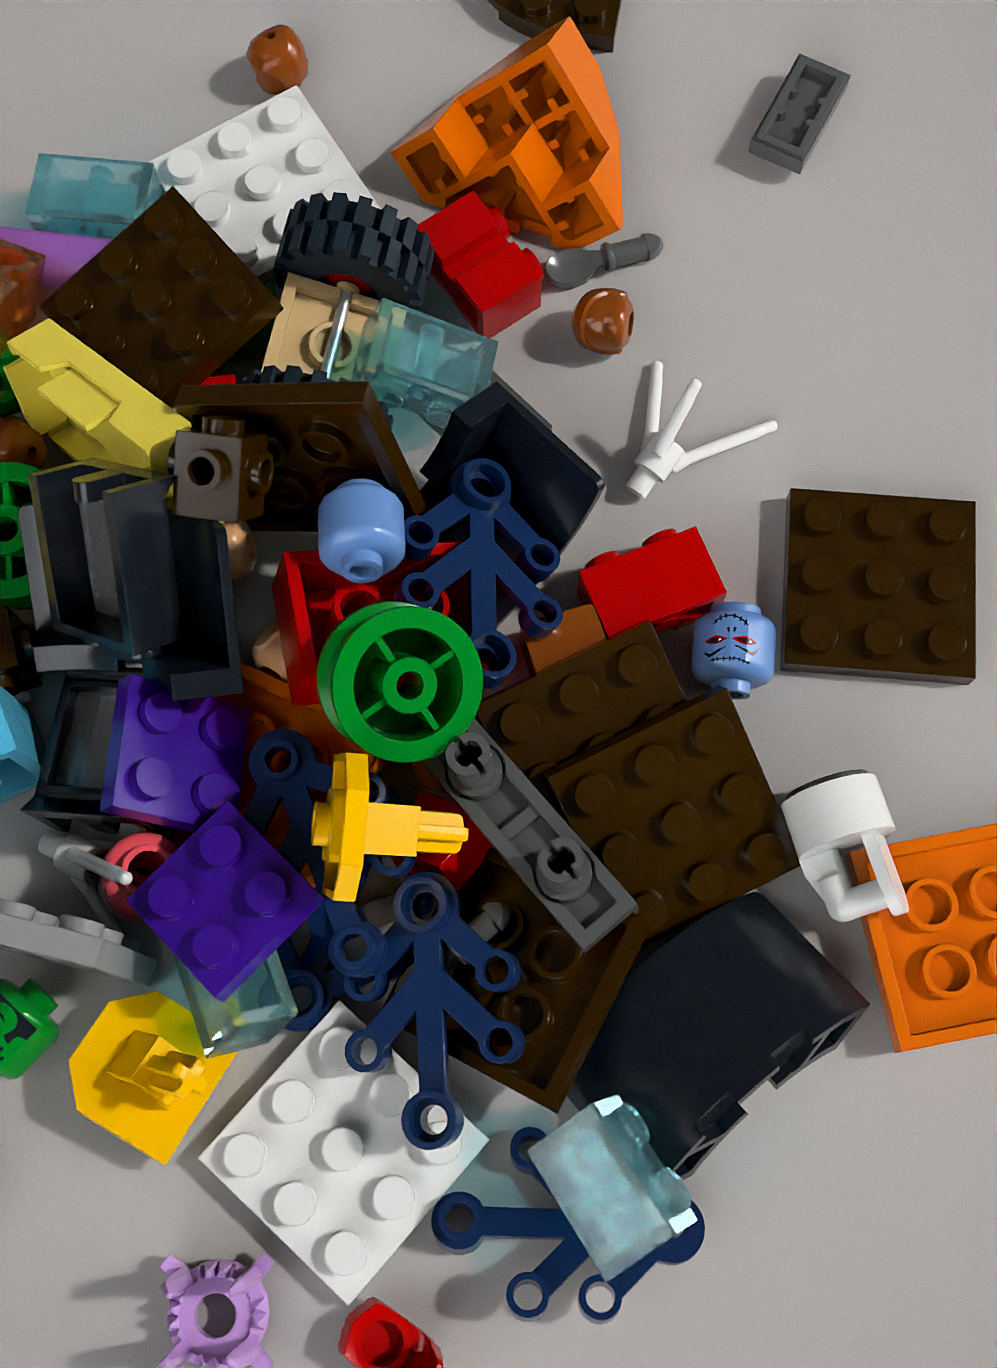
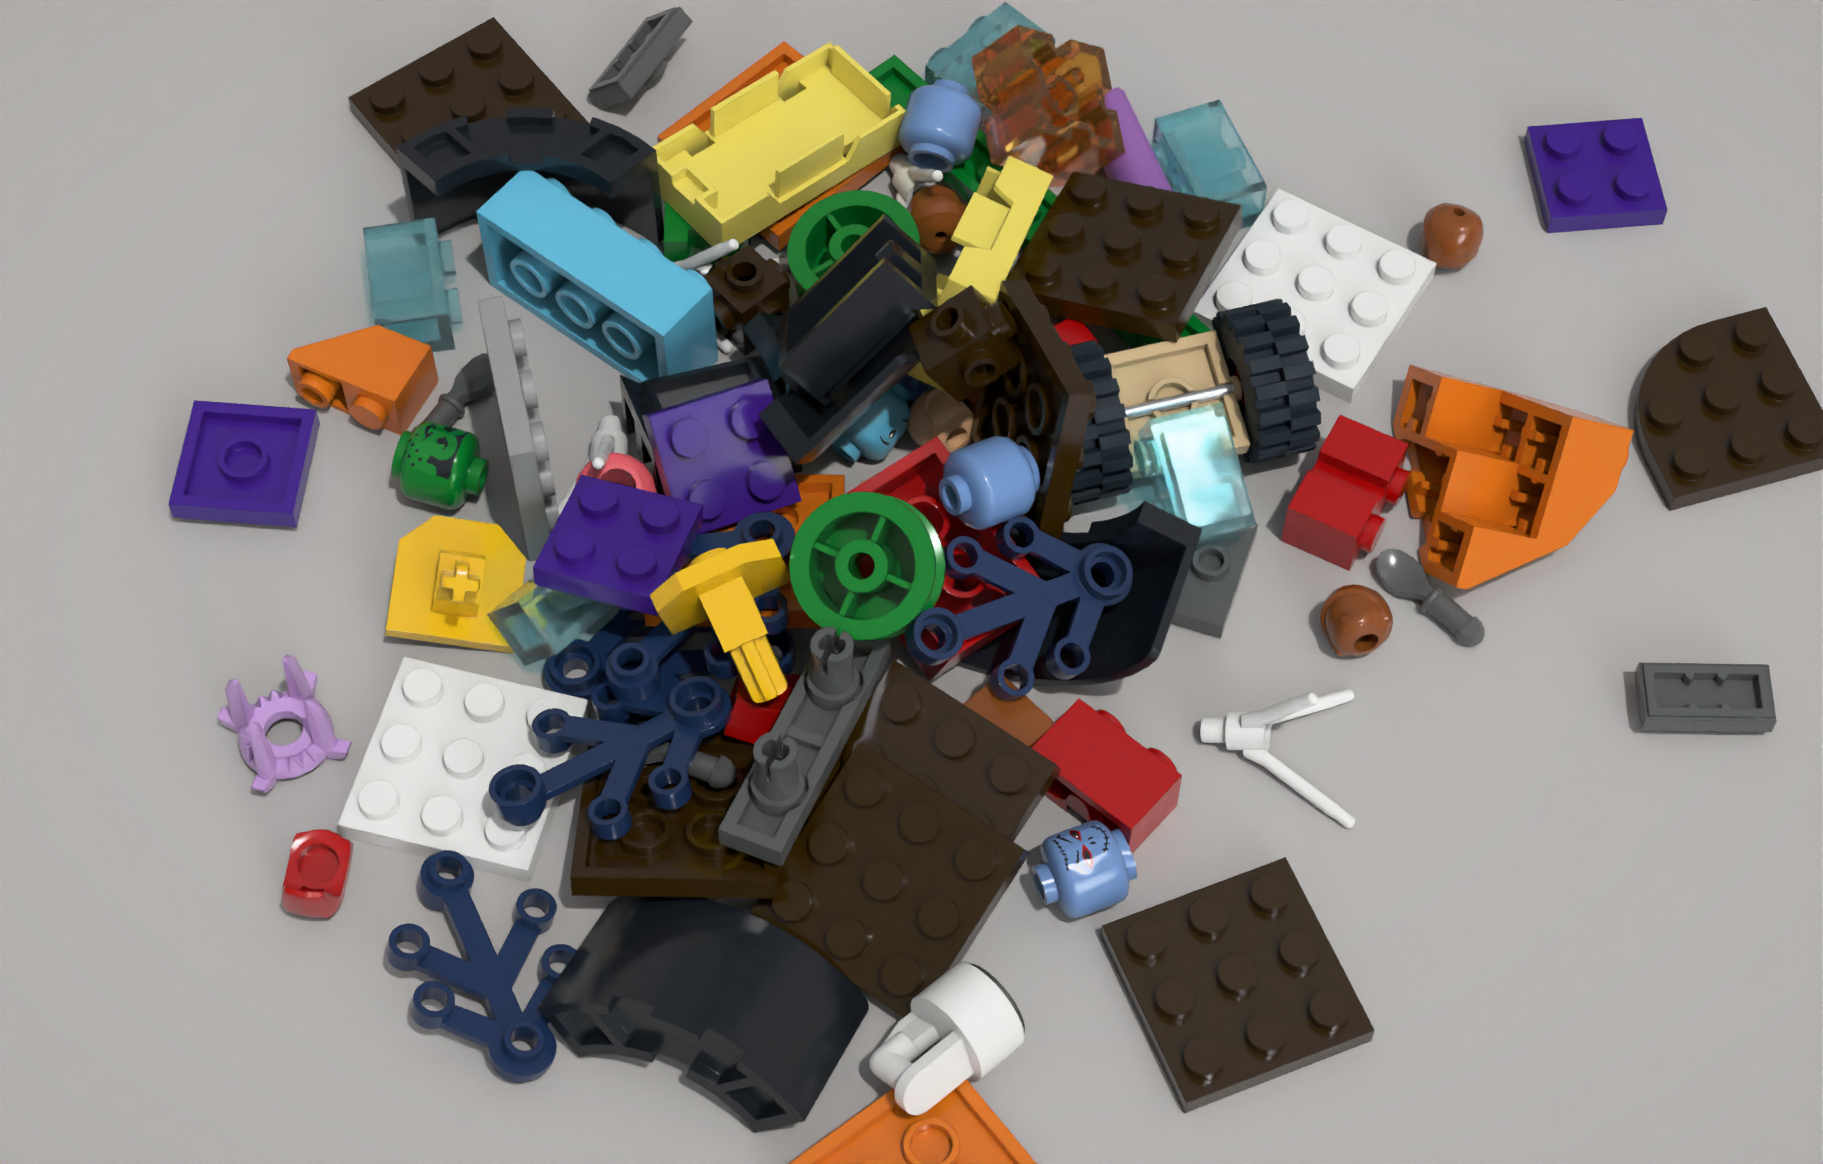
camera: 60 degrees right, 15 degrees down
(613, 1185) = (530, 957): clear light blue brick -> none

